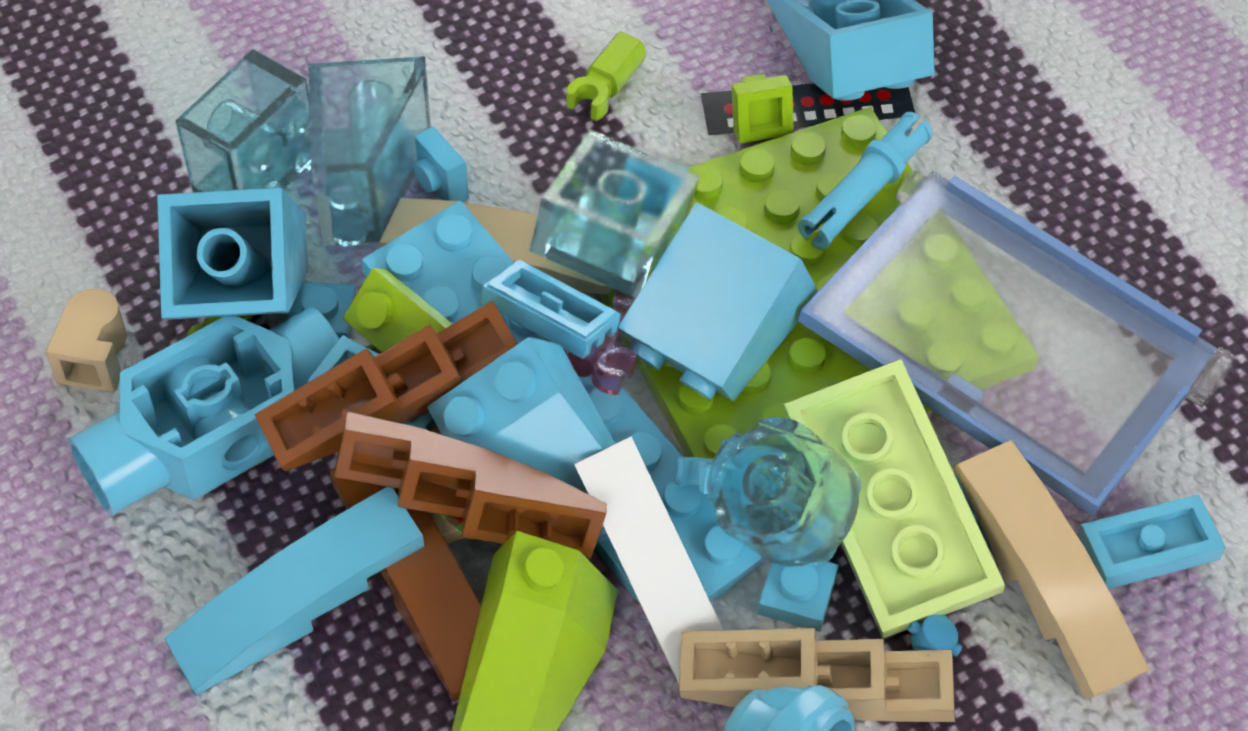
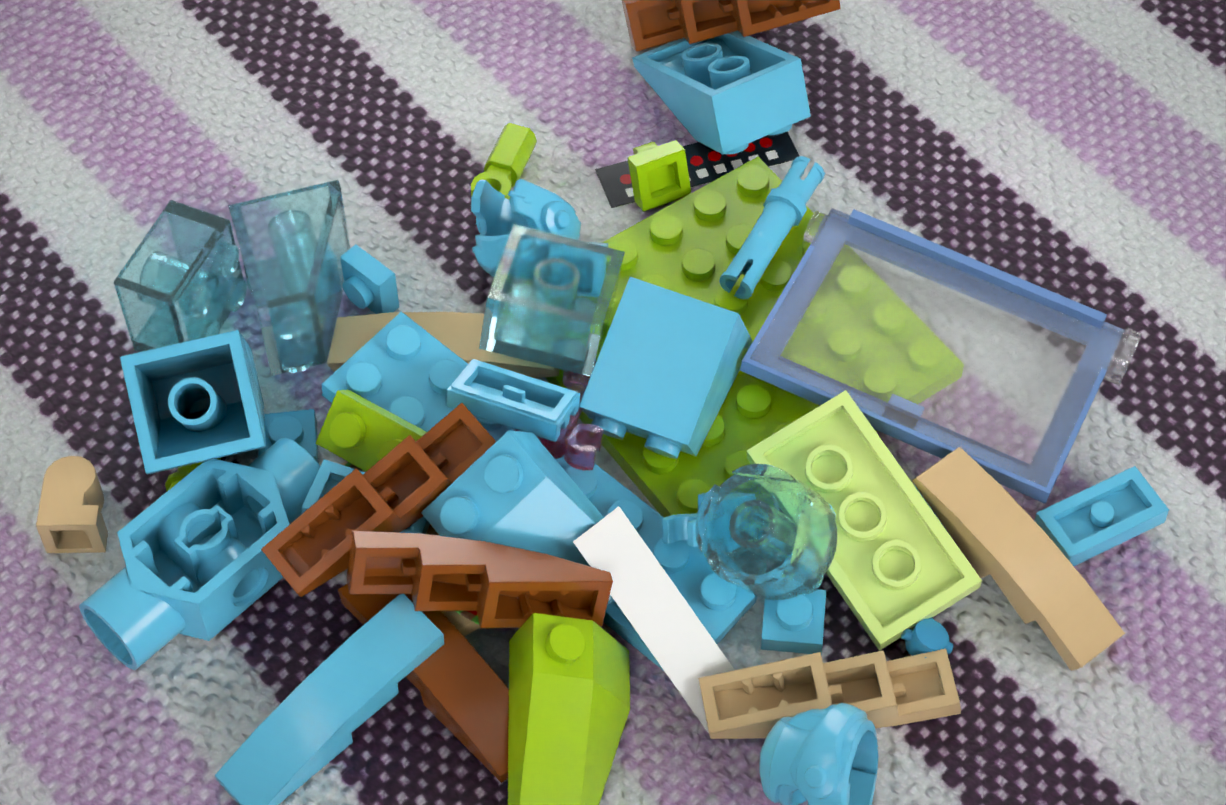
camera: 10 degrees left, 0 degrees up
(607, 114) = (527, 207): none -> medium azure helmet

